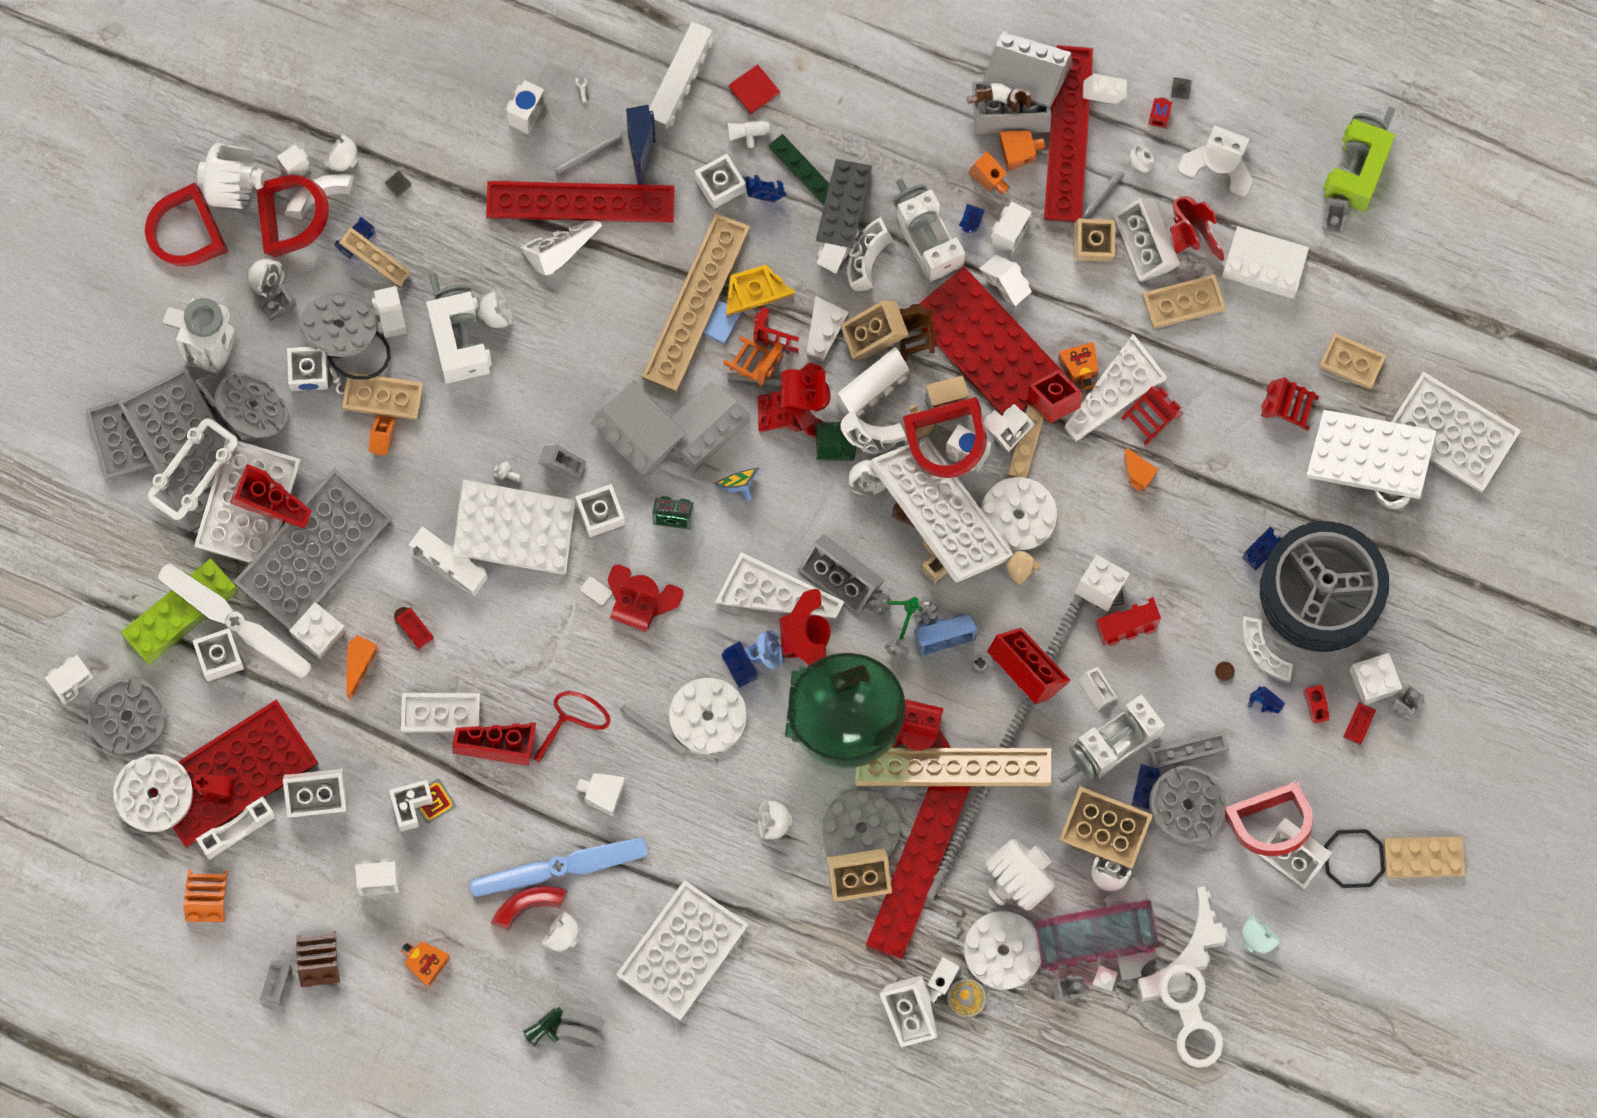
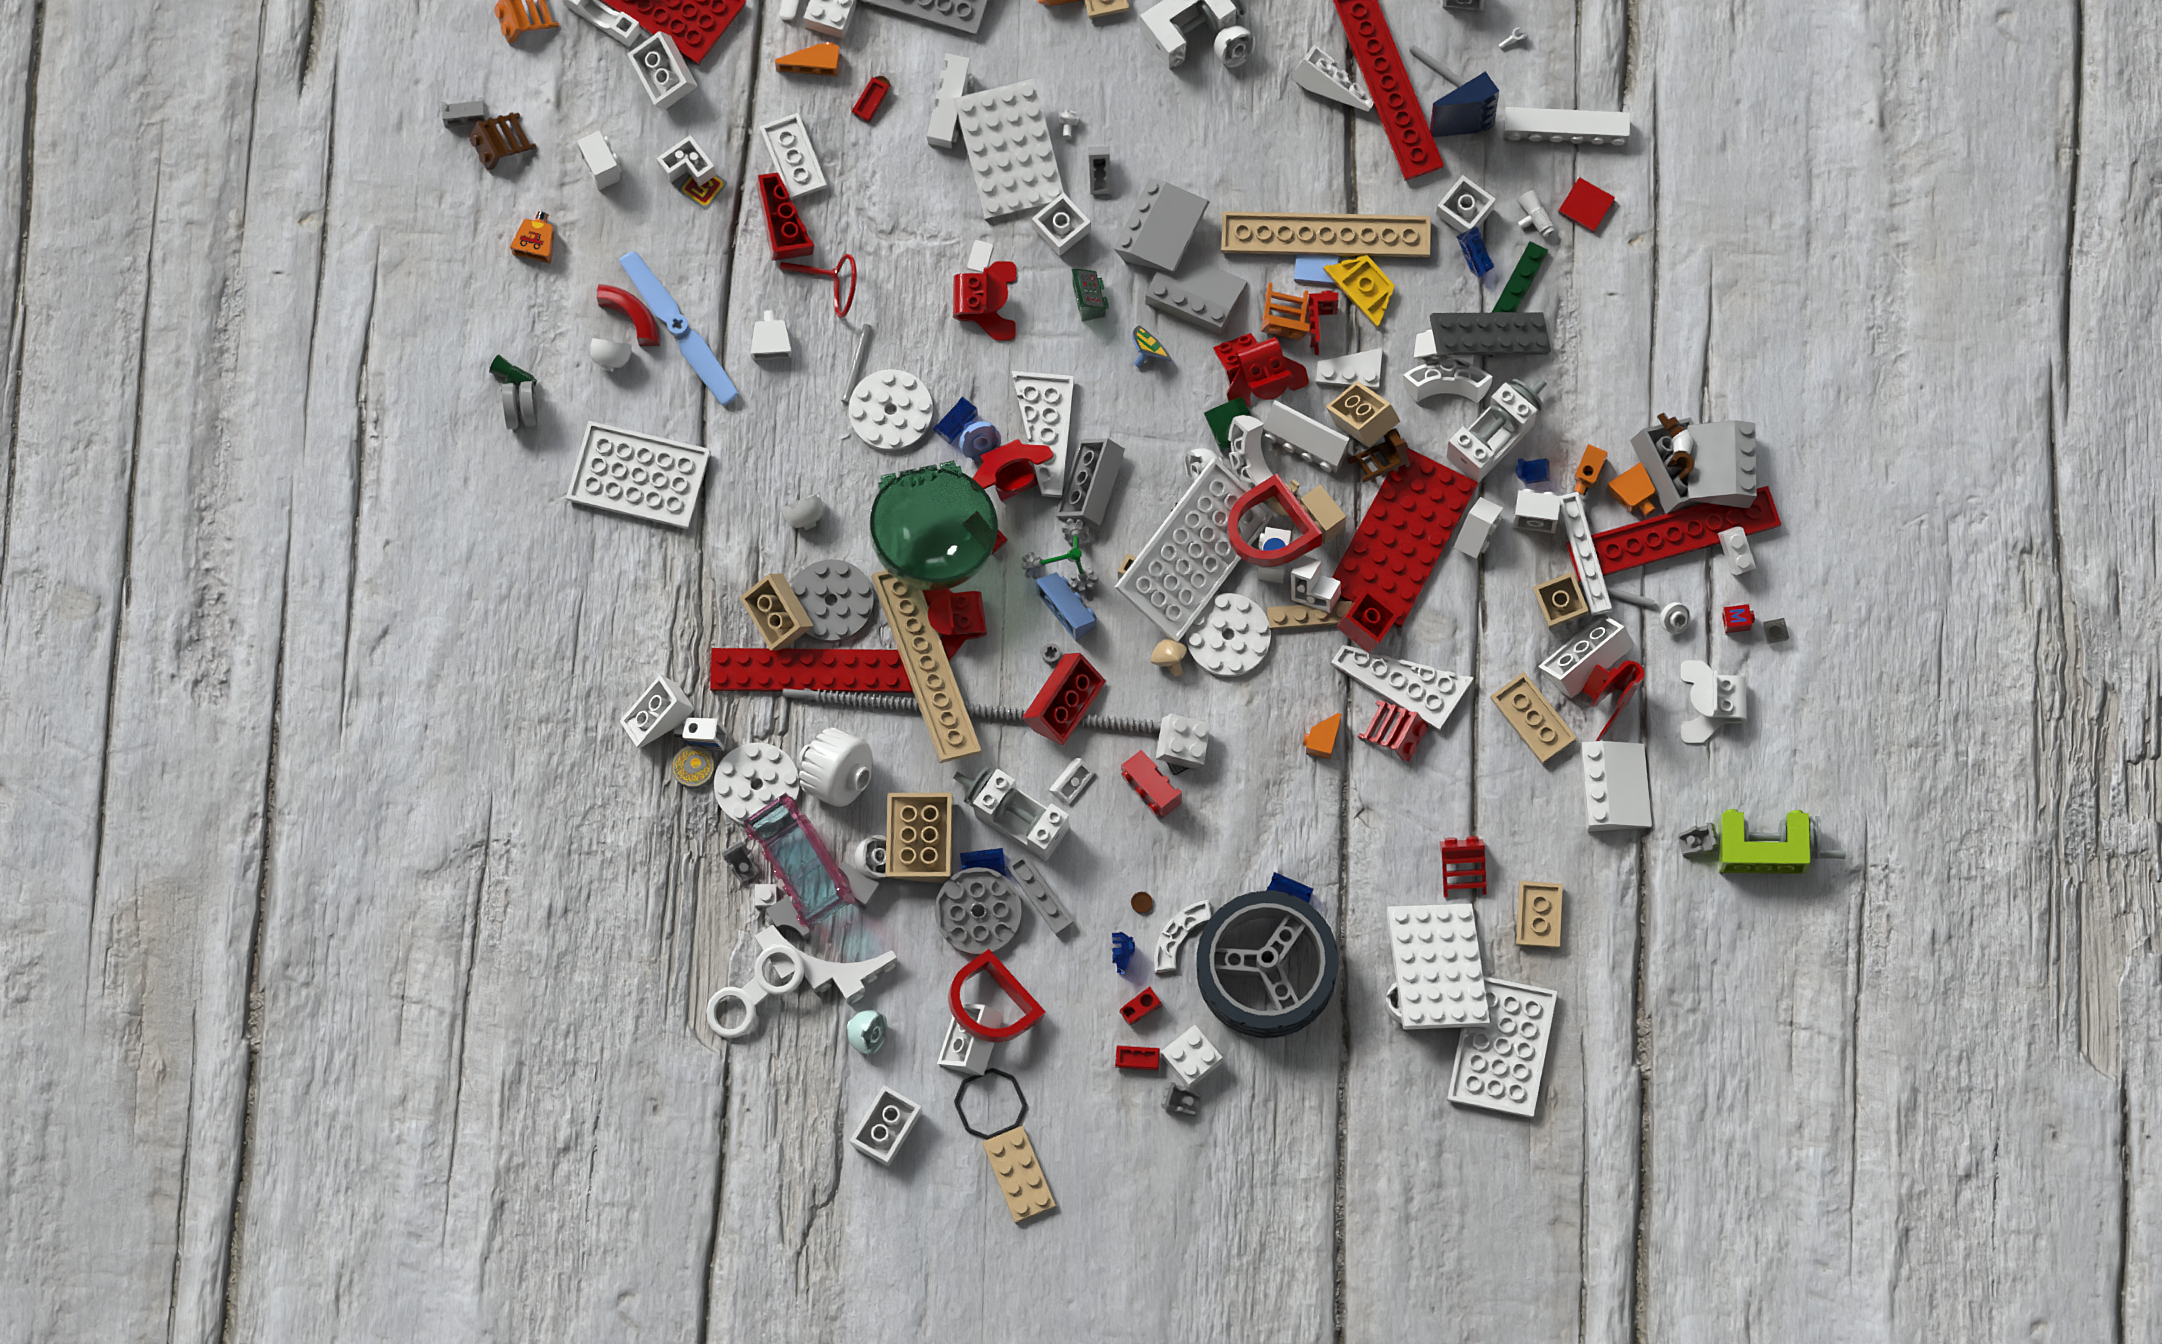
camera: 75 degrees right, 0 degrees up
(1063, 206) = (1584, 554): none -> white tile
(1080, 364) = (1418, 637): orange torso -> none
(1348, 949) = (886, 1125): none -> white brick

